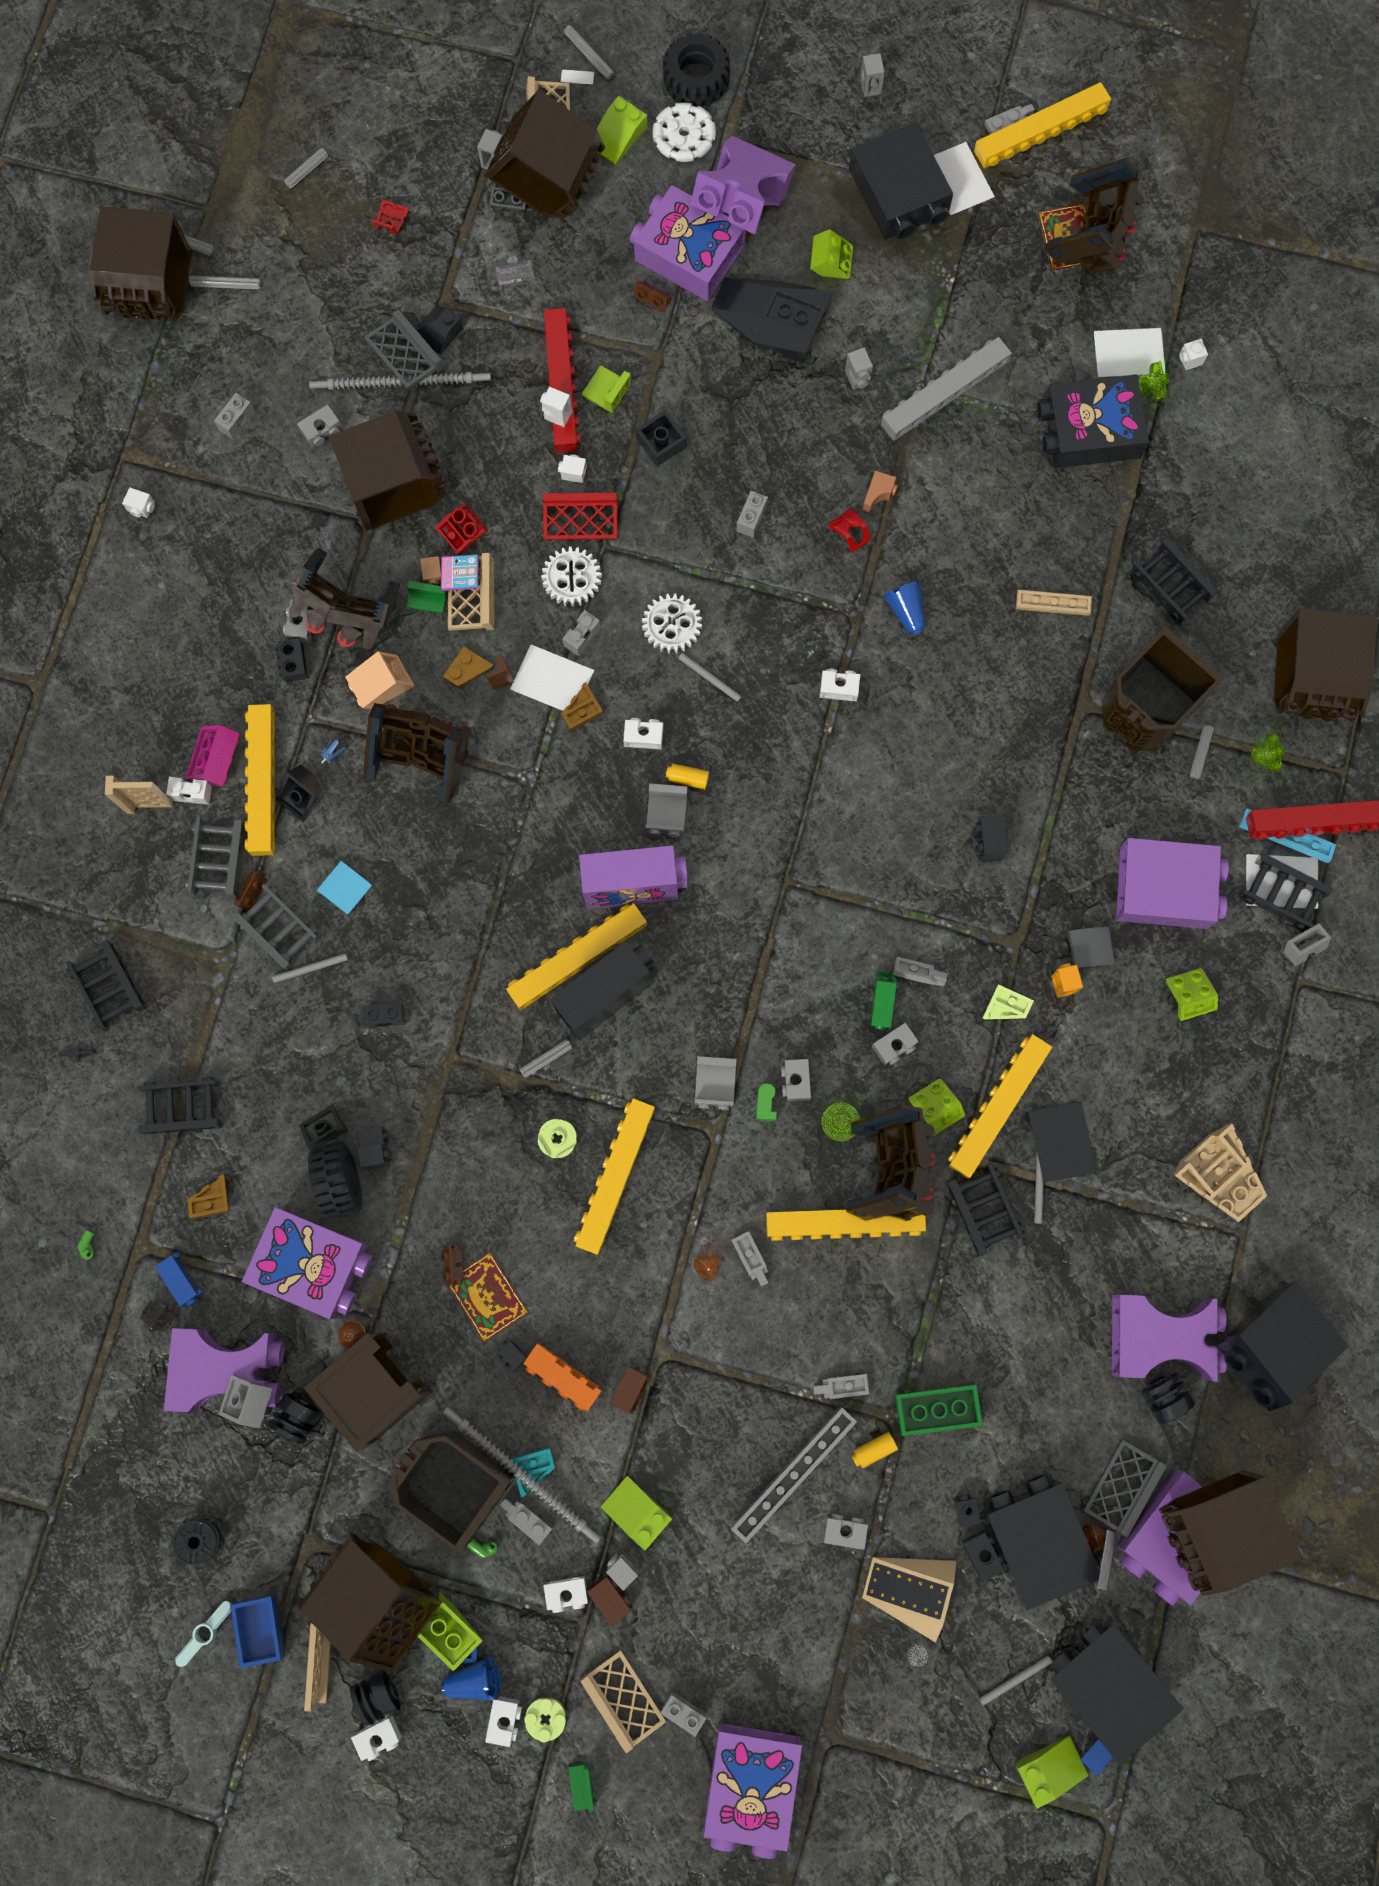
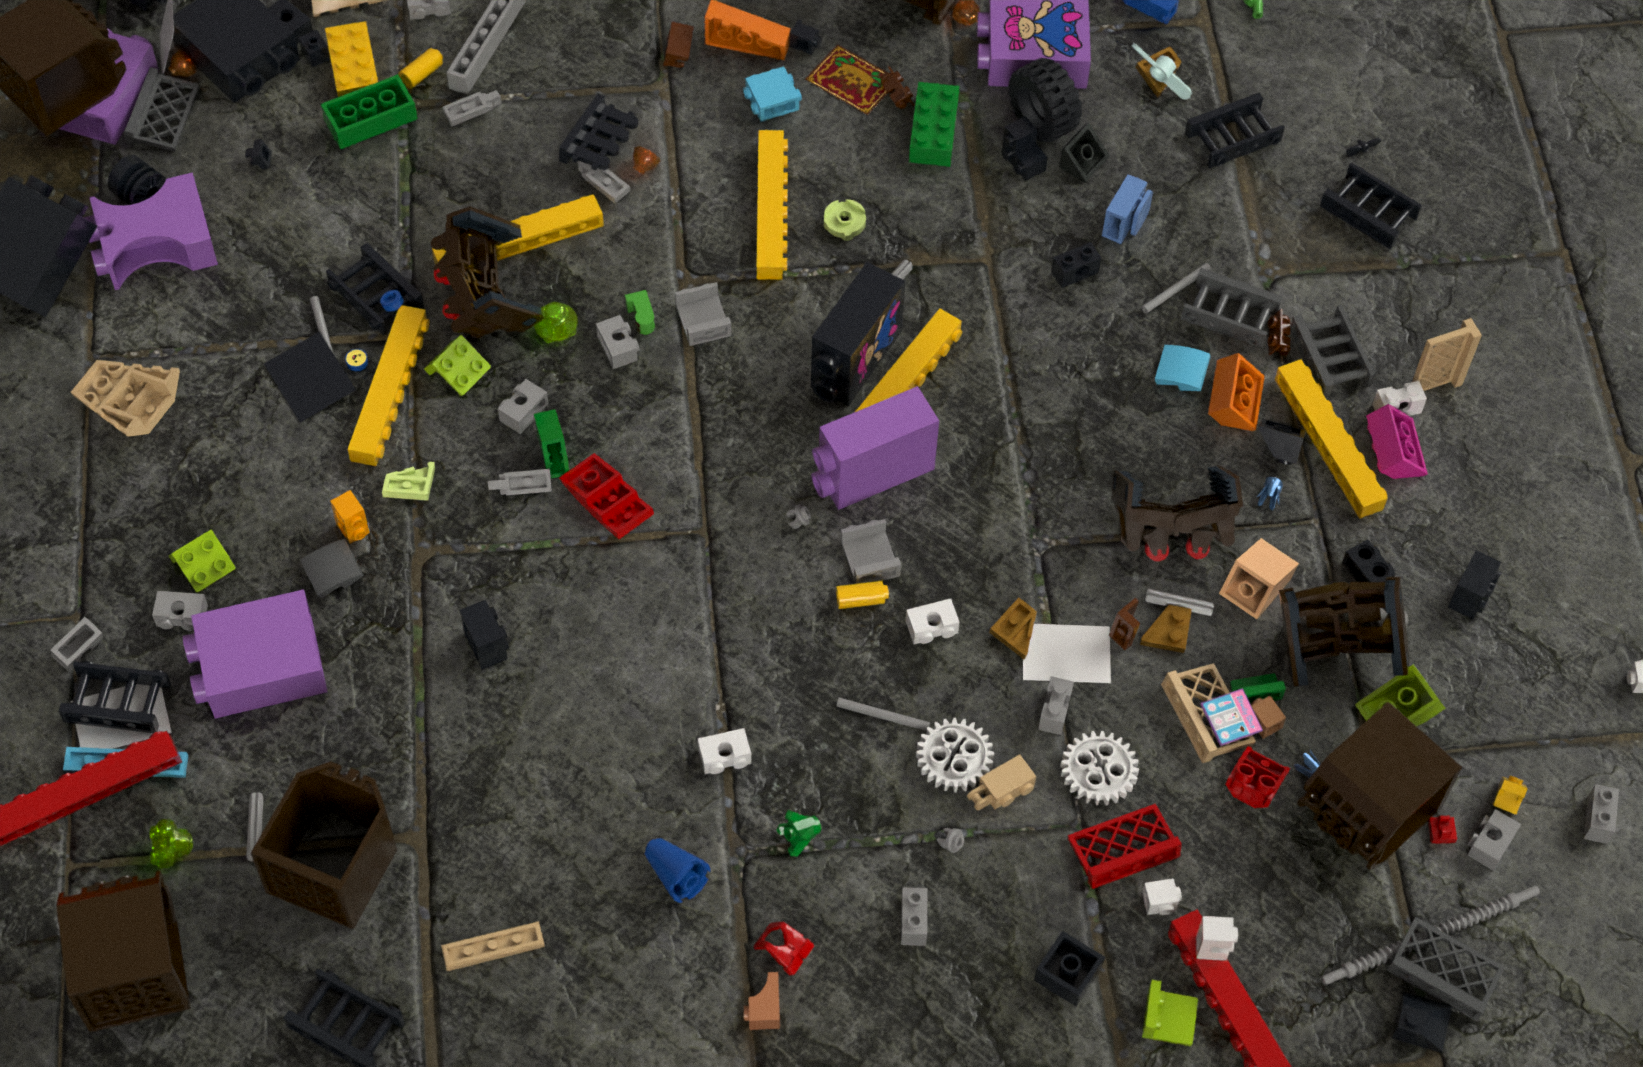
camera: 155 degrees right, 20 degrees down
(210, 1189) = (1163, 70): none -> light aqua piece
(223, 610) = (1476, 585): none -> black brick
(290, 451) = (1510, 794): none -> yellow brick
(314, 846) = (1236, 393): none -> orange slope
(314, 1050) = (1127, 209): none -> medium blue brick
(339, 542) = (1408, 694): none -> lime slope
(418, 521) = (1310, 763): none -> flat silver piece
(437, 1210) = (934, 124): none -> green brick
(448, 686) = (1166, 599): none -> light grey axle
(568, 1297) = (772, 93): none -> medium azure brick
(646, 588) = (1004, 784): none -> tan brick
(699, 560) = (953, 841): none -> light grey plate
(706, 862) = (802, 516): none -> light grey plate
(736, 1317) = (580, 139): none -> black fence
(808, 604) = (799, 831): none -> green rock
(854, 937) = (606, 496): none -> red slope
(936, 1478) = (351, 57): none -> yellow brick
(976, 1184) = (391, 300): none -> blue tile
(1018, 1145) = (356, 360): none -> tile
(1048, 1400) = (259, 154): none -> black tile
(1208, 951) = (171, 603): none -> light grey brick

